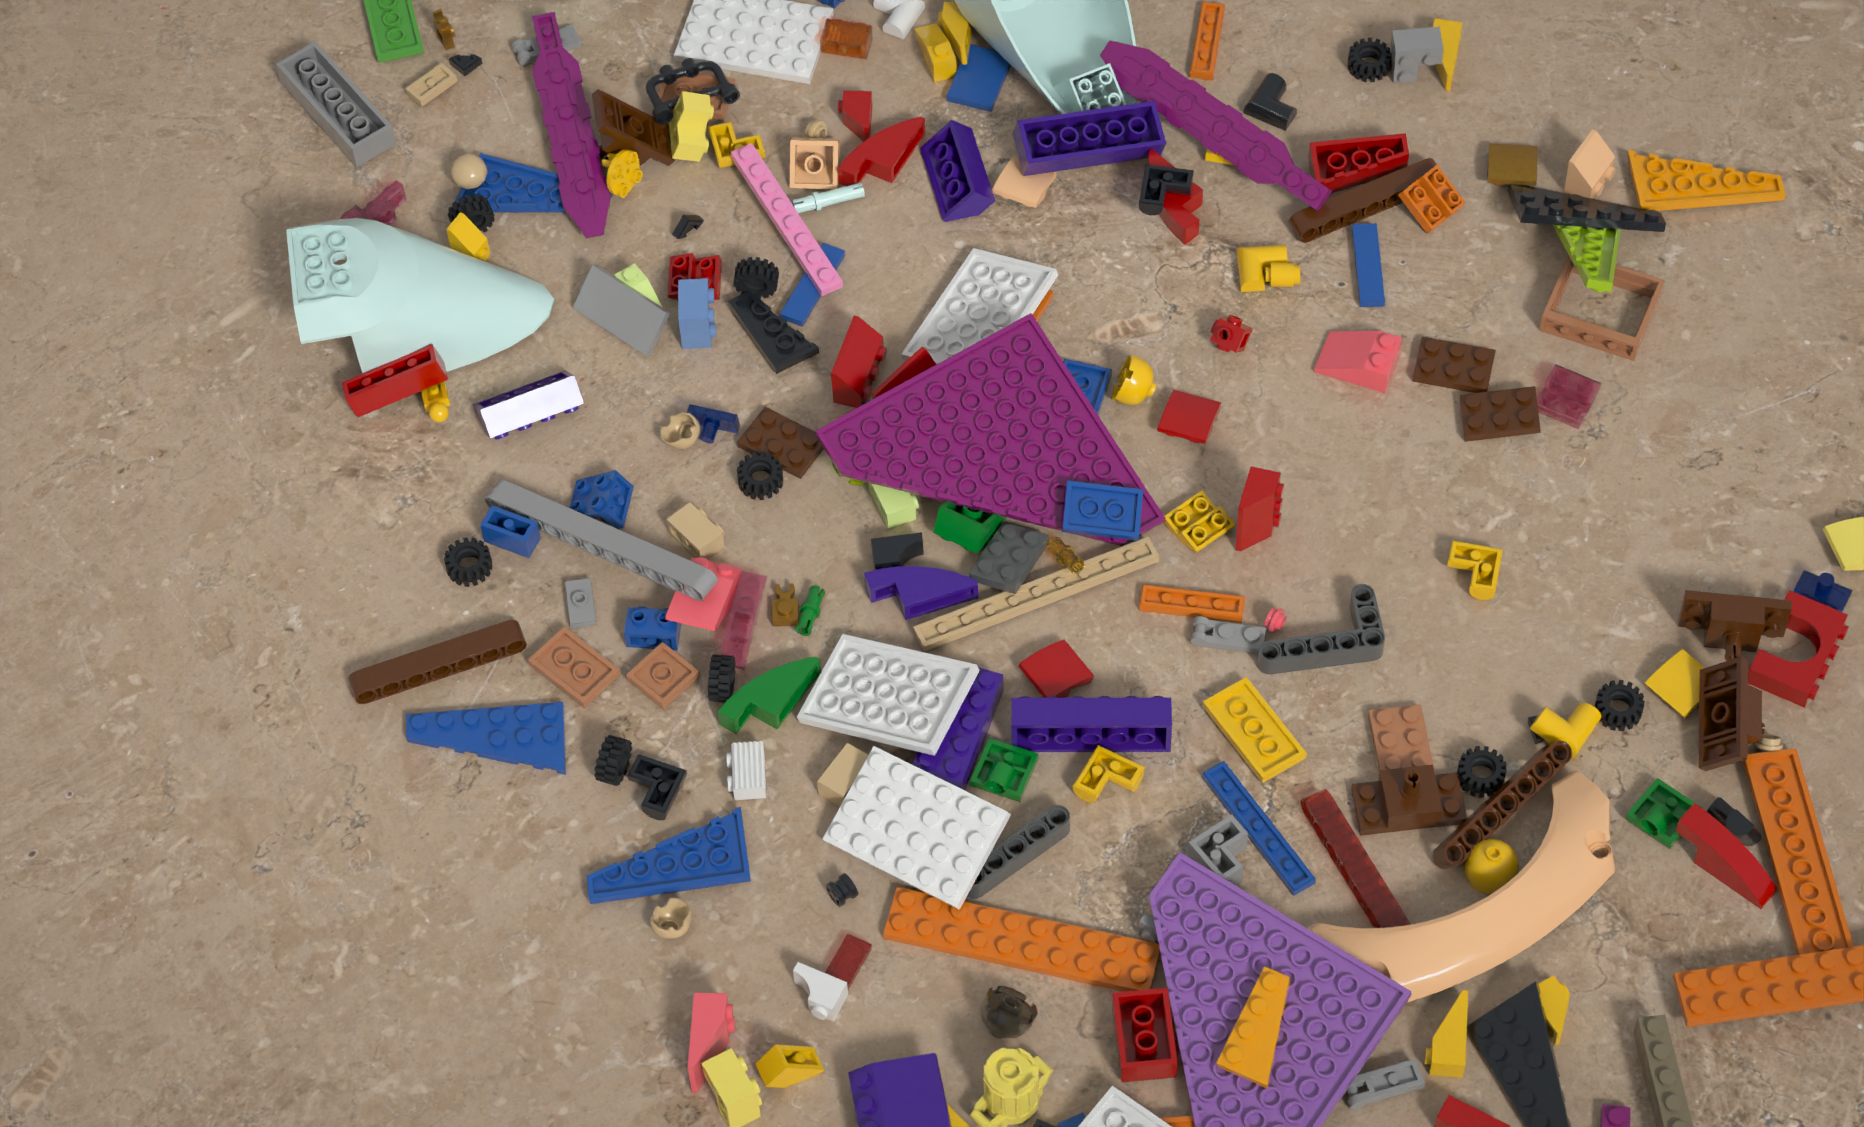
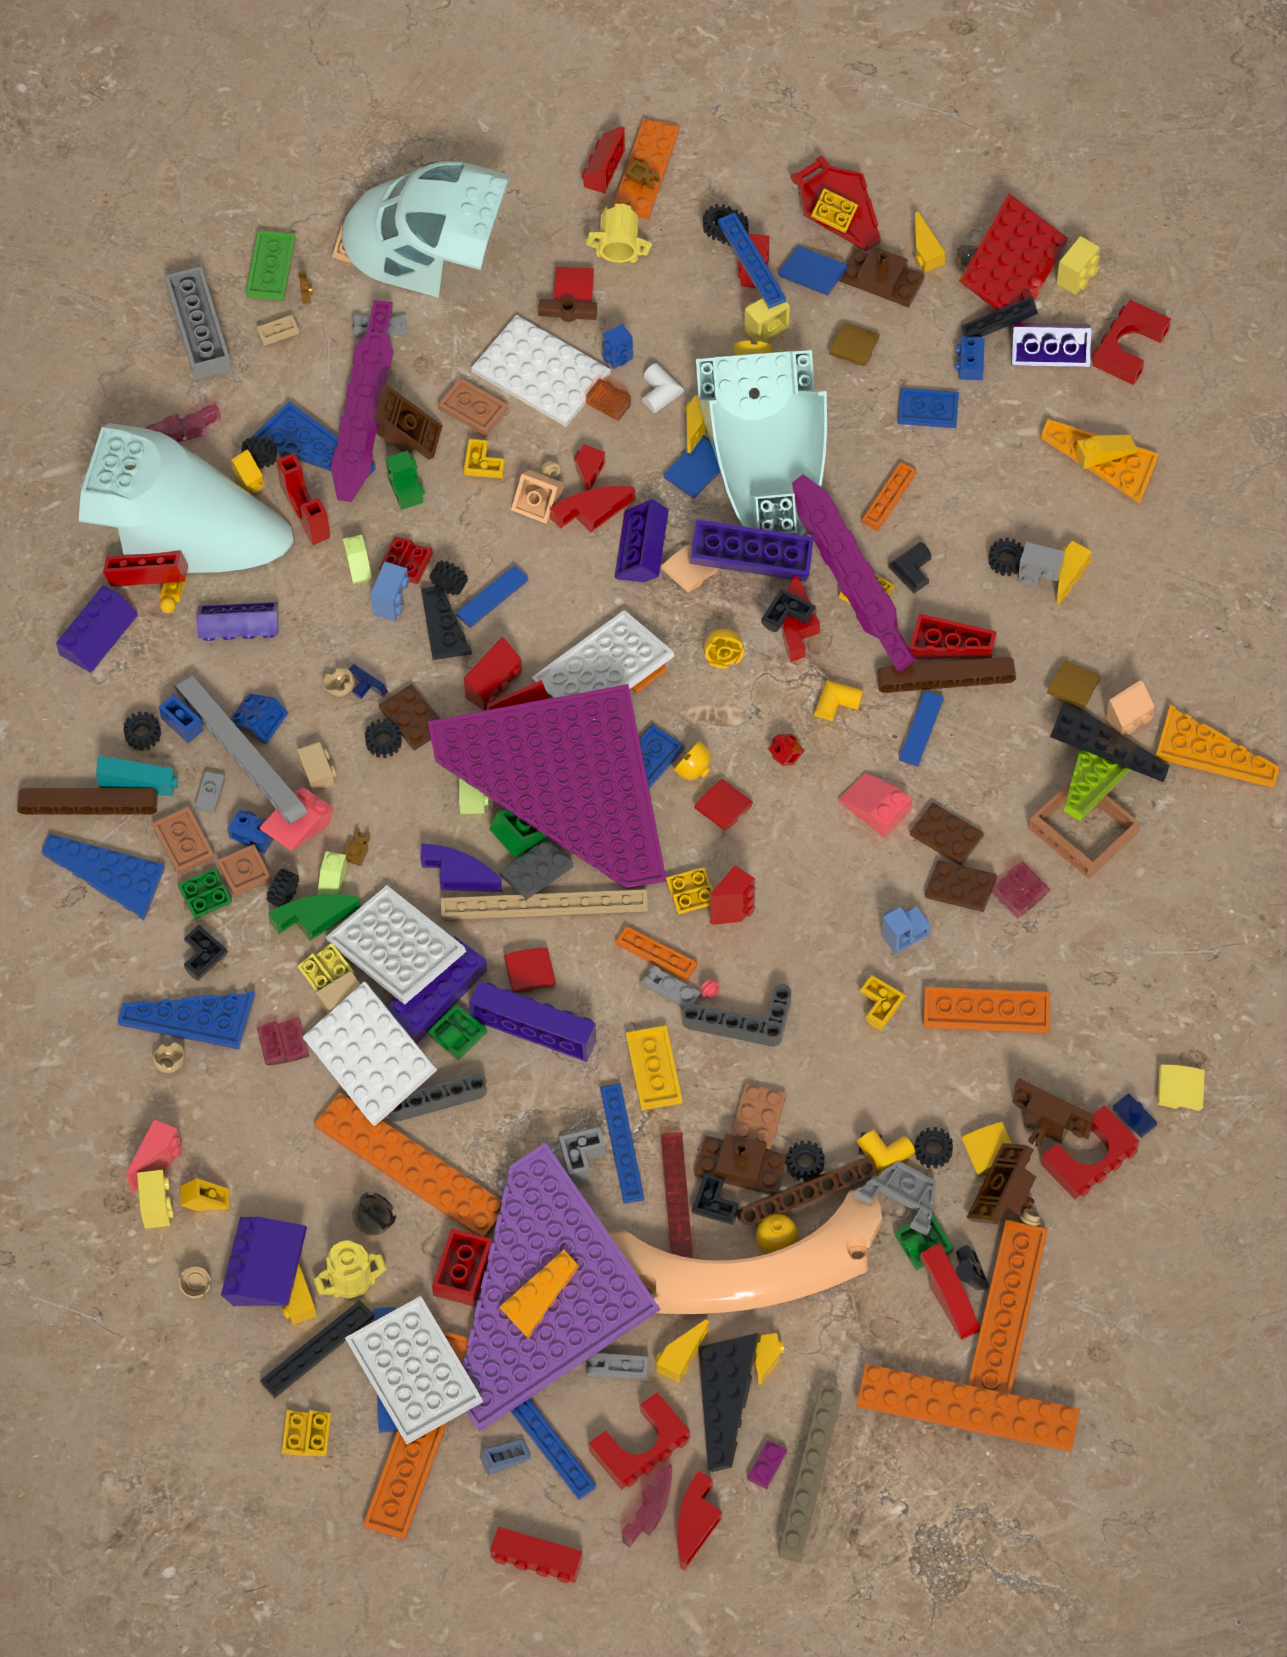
camera: 20 degrees right, 5 degrees up
(362, 468) = (96, 629): none -> dark purple slope
(465, 64) = (312, 320): black tile -> none
(469, 171) = (272, 414): tan hair -> none
(475, 612) = (130, 774): none -> teal slope
(565, 263) = (309, 512): none -> red arch
(613, 760) = (178, 923): black tyre -> none
(621, 310) = (337, 569): light grey tile -> none
(622, 172) = (383, 450): yellow plate -> none
(627, 716) = (204, 893): none -> green slope
(652, 192) = (403, 480): none -> green brick
(662, 110) = (495, 415): black bar -> none
(686, 224) = (418, 514): black tile -> none
(689, 126) = (452, 435): light yellow brick -> none
(743, 617) = (323, 840): clear pink slope -> none
(748, 770) = (272, 965): white brick -> none
(771, 642) = (332, 873): none -> yellowish green slope
(786, 220) = (493, 537): bright pink plate -> none
(800, 853) = (282, 1041): none -> clear pink slope
(810, 610) = (372, 858): green pin -> none
(811, 752) = (325, 967): none -> light yellow slope
(824, 991) = (253, 1153): white arch -> none
(835, 196) = (534, 529): light aqua pin -> none
(842, 890) = (299, 1080): black wheel -> none
(849, 959) = (280, 1135): clear red tile -> none
(896, 550) = (454, 834): black arch -> none
(936, 52) = (673, 433): yellow slope -> none
(1065, 555) = (577, 882): clear yellow pin -> none
(1102, 510) = (618, 857): blue plate -> none
(1106, 767) = (532, 1057): yellow brick -> none
(1107, 251) = (723, 648): none -> yellow cylinder
(1282, 274) = (850, 714): yellow brick -> none
(1401, 860) = (710, 1205): none -> black brick
(1431, 198) = (995, 691): orange slope -> none
(1462, 479) = (904, 928): none -> medium blue brick
(1599, 535) = (987, 1010): none -> orange plate
(1616, 759) = (905, 1187): none -> light grey wing

